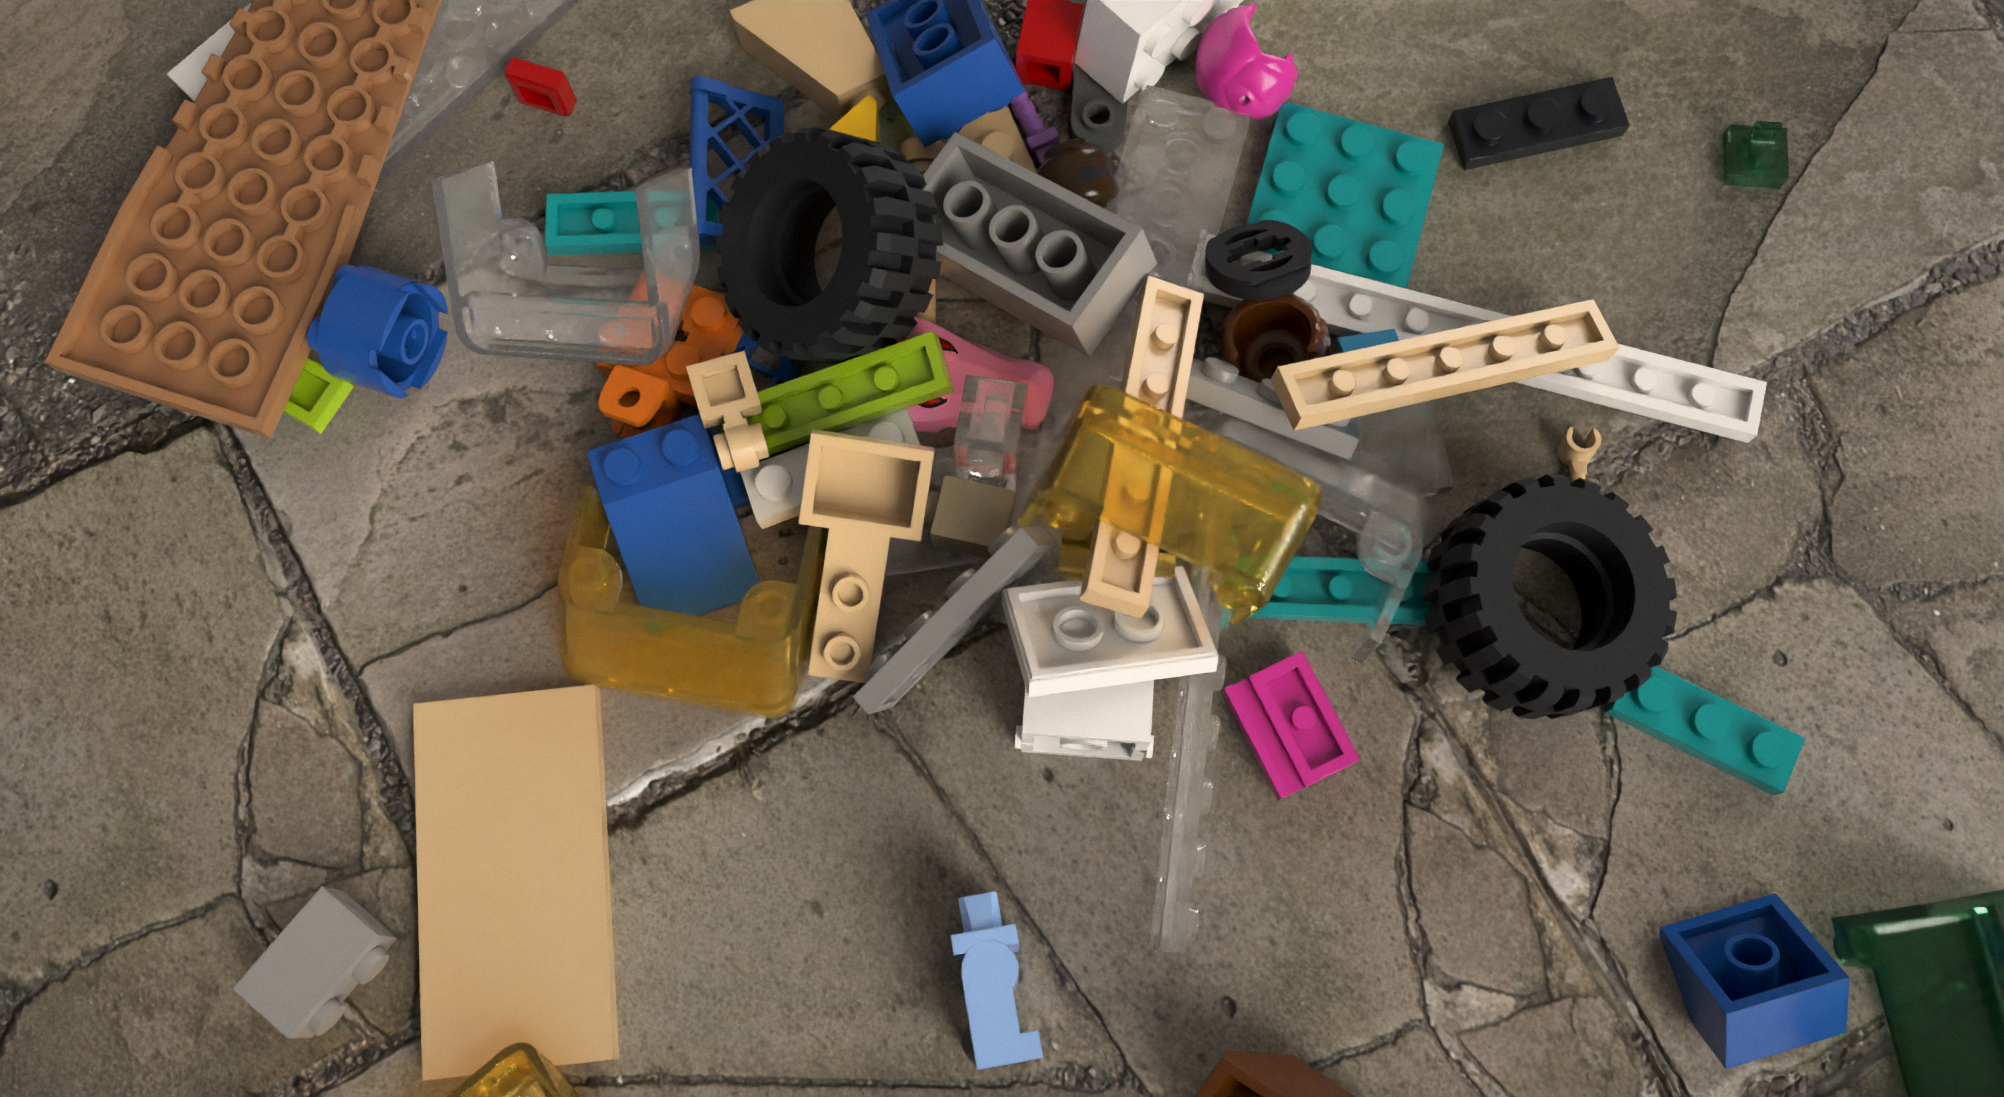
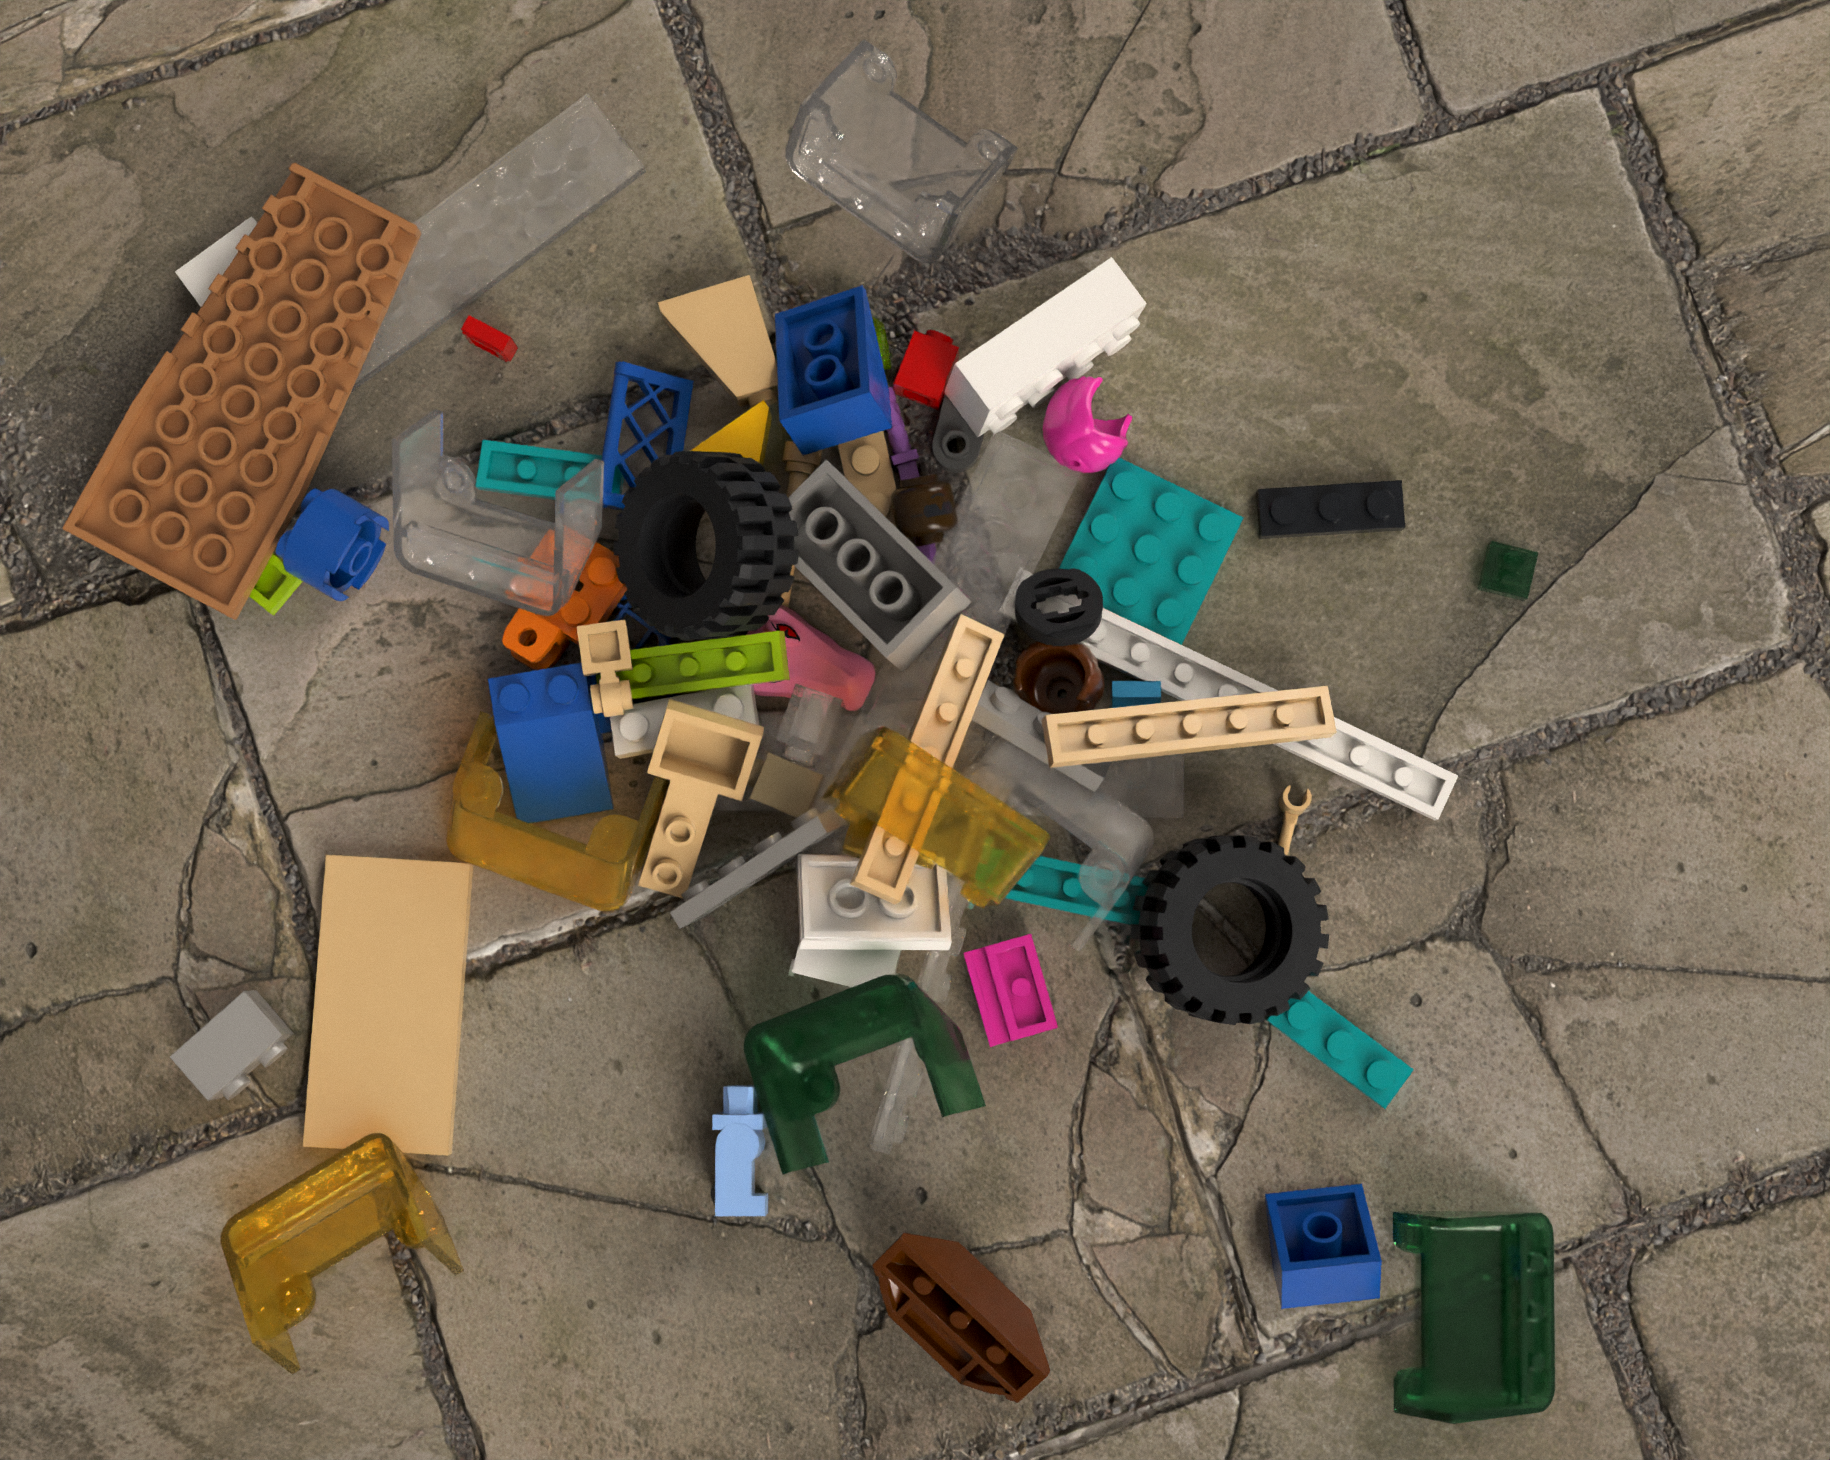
camera: 15 degrees right, 10 degrees up
(1046, 832) = (797, 1053): none -> clear green windscreen

